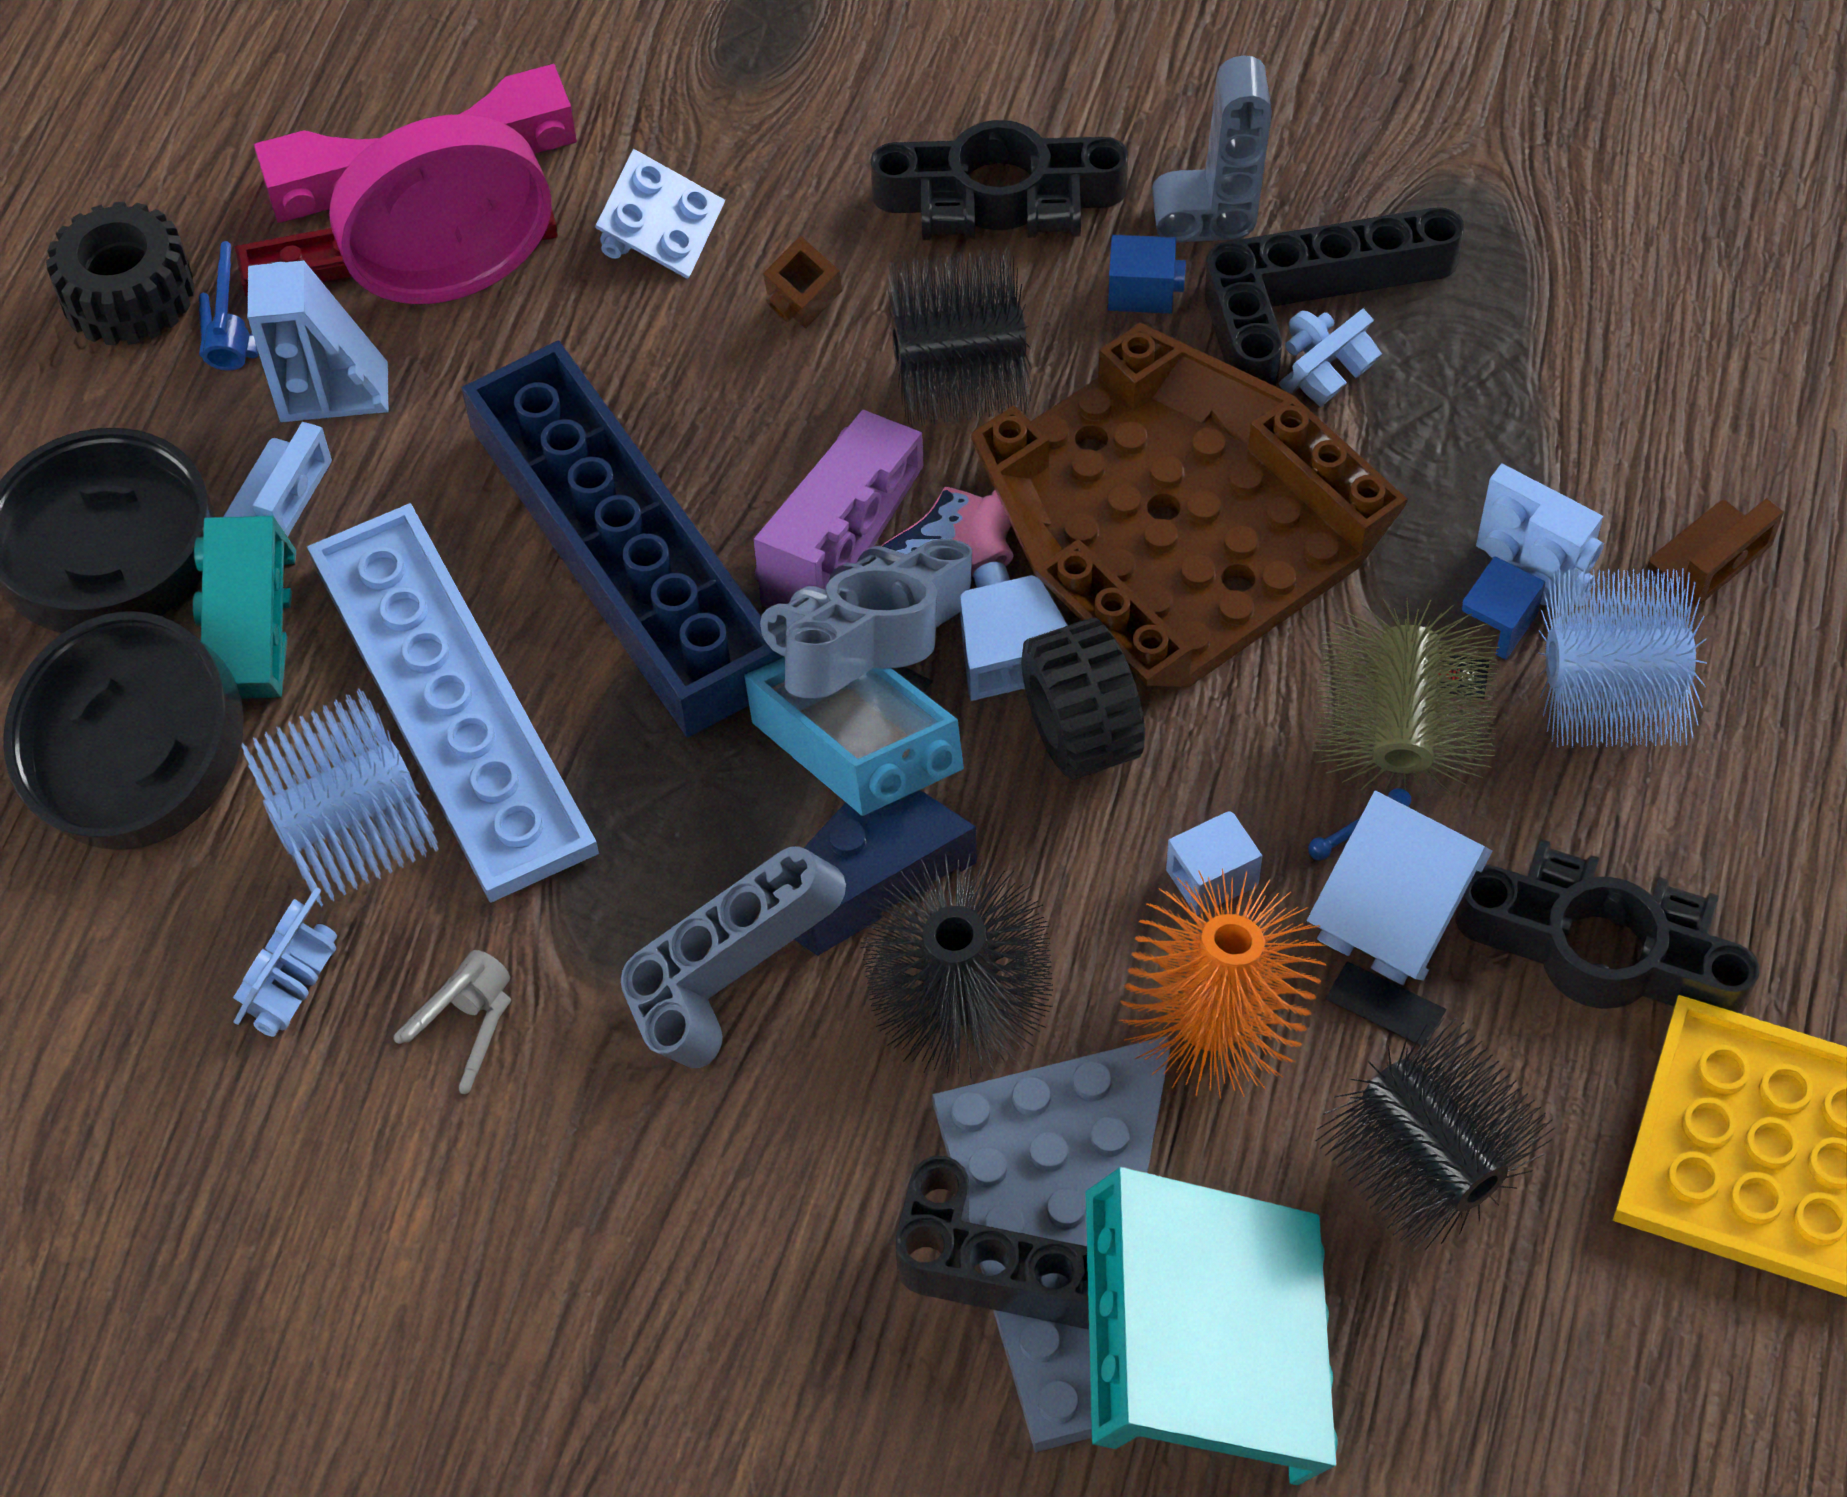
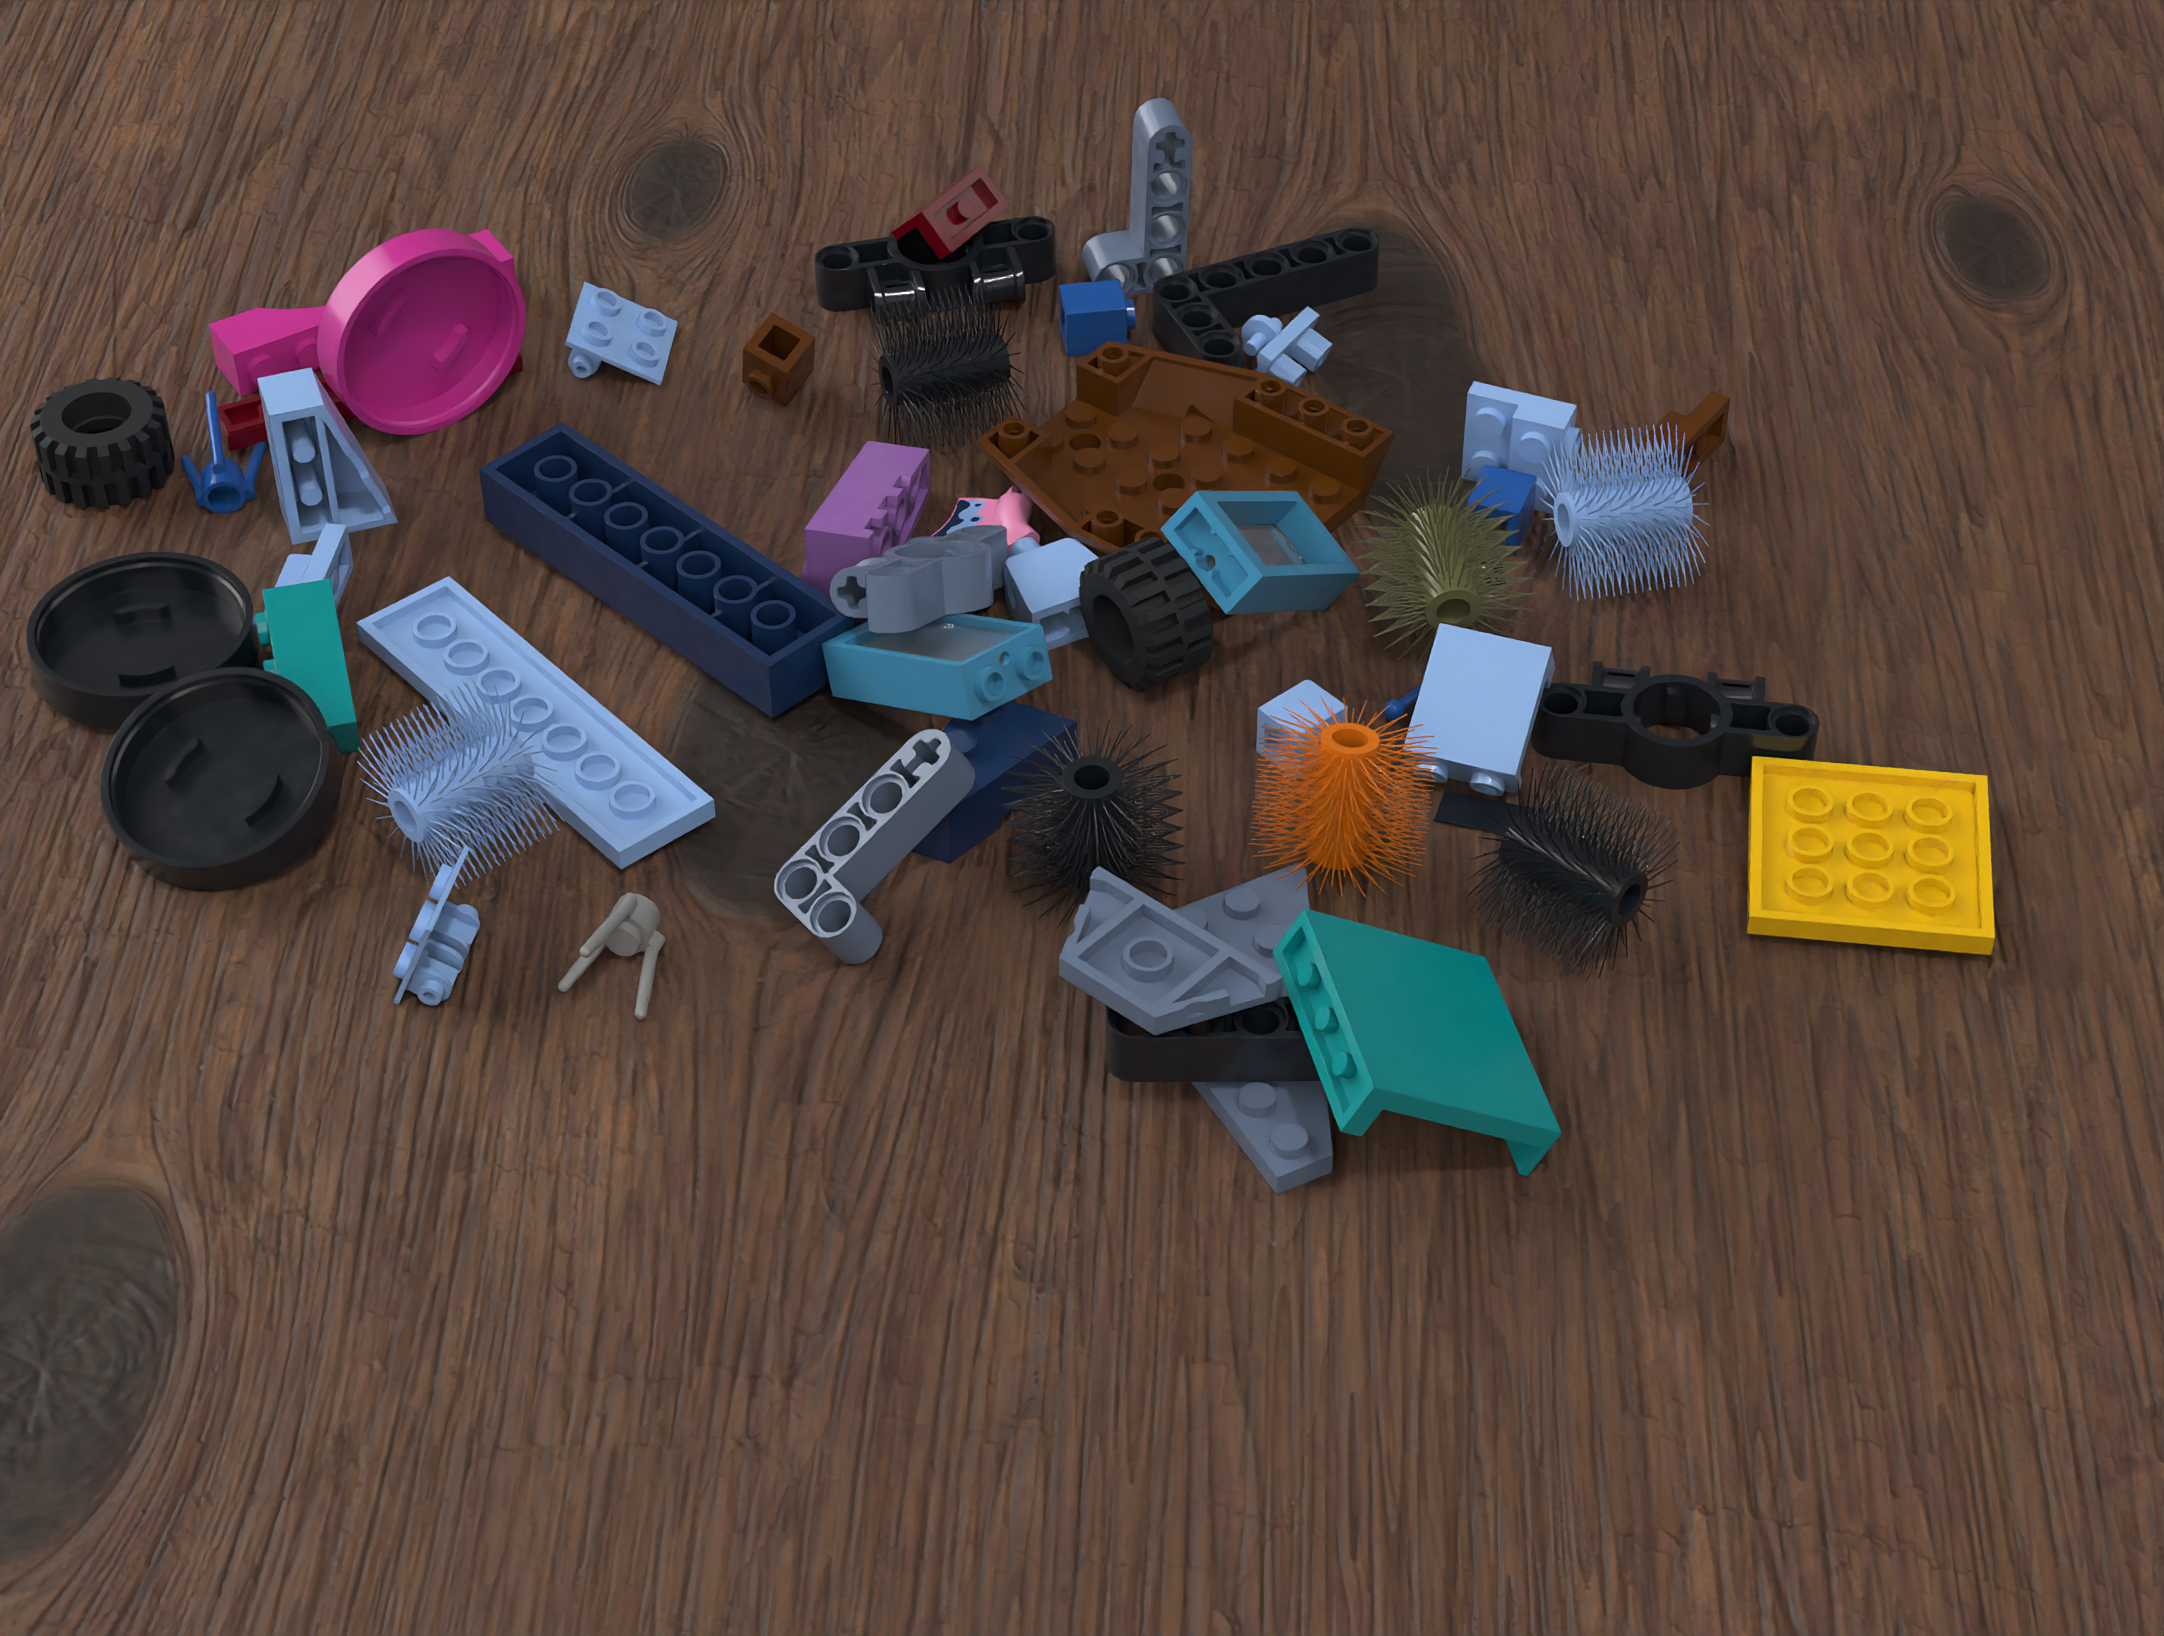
camera: 15 degrees left, 15 degrees down
(959, 1184) = (1156, 961): none -> sand blue wing
(1024, 128) = (956, 212): none -> dark red panel
(1216, 648) = (1260, 551): none -> dark azure window

